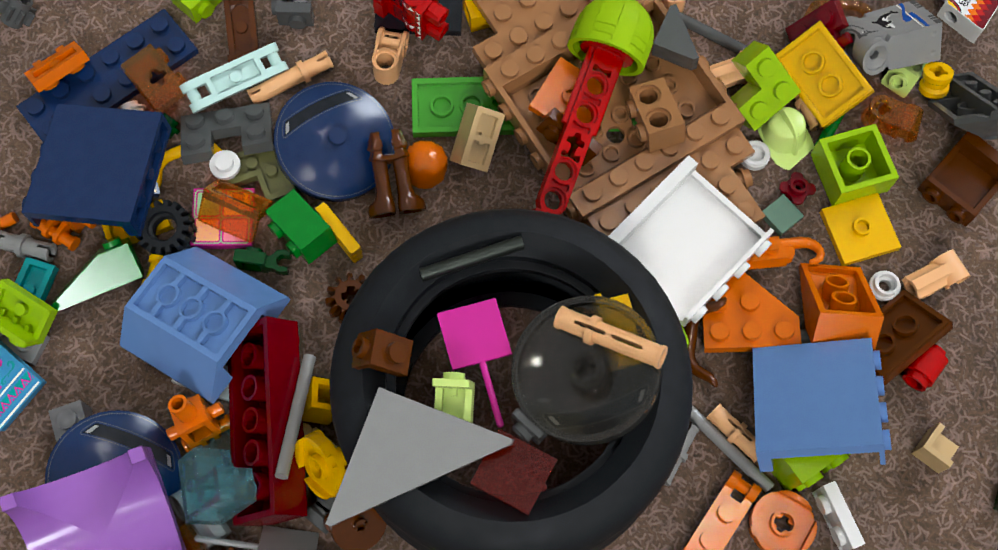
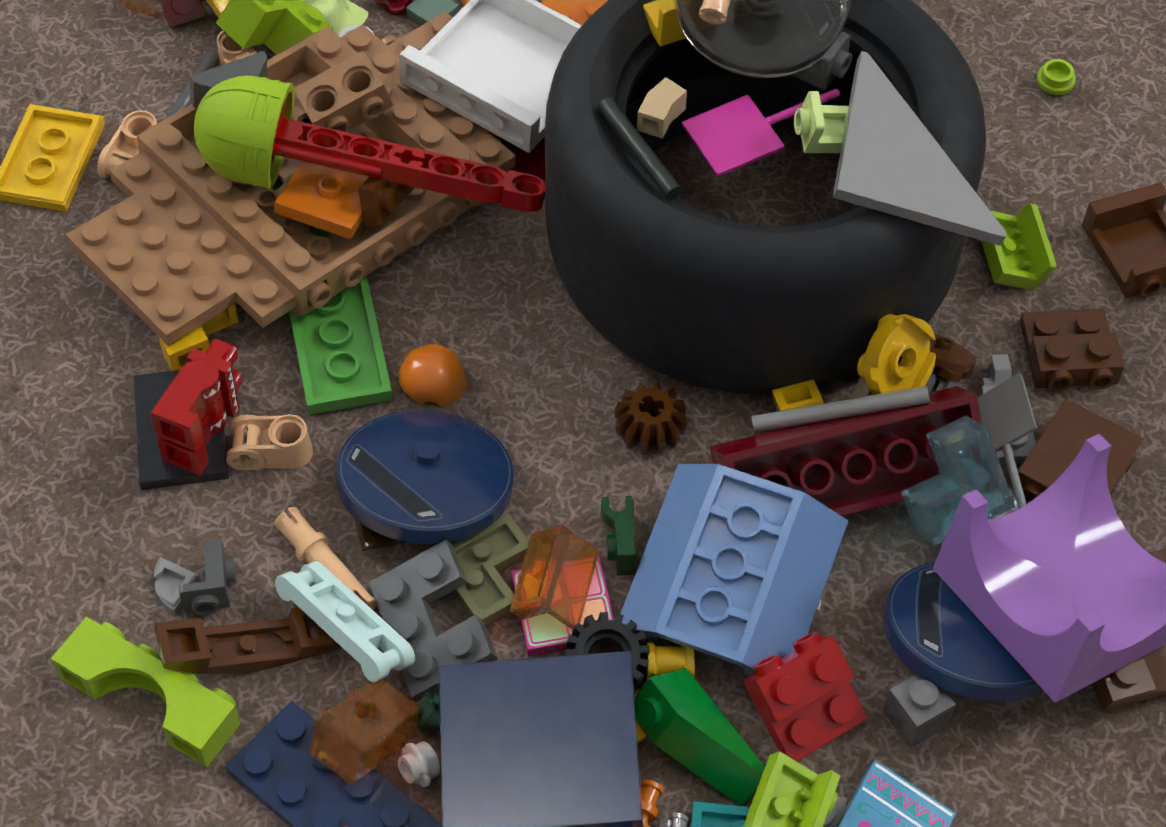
camera: 100 degrees left, 15 degrees down
(101, 348) = (806, 695): none -> red plate
(196, 421) = (874, 543): orange piece -> none
(225, 165) = (490, 599): white plate -> none
(300, 226) = (563, 489): green brick -> none
(342, 235) = (559, 449): yellow tile -> none
(382, 352) = (789, 209): reddish brown bracket -> none
(407, 199) = (435, 399): reddish brown piece -> none
(477, 137) = (391, 307): tan hinge -> none
(506, 280) = (661, 107): none -> tan piece
(515, 474) = (899, 62): clear red piece -> none

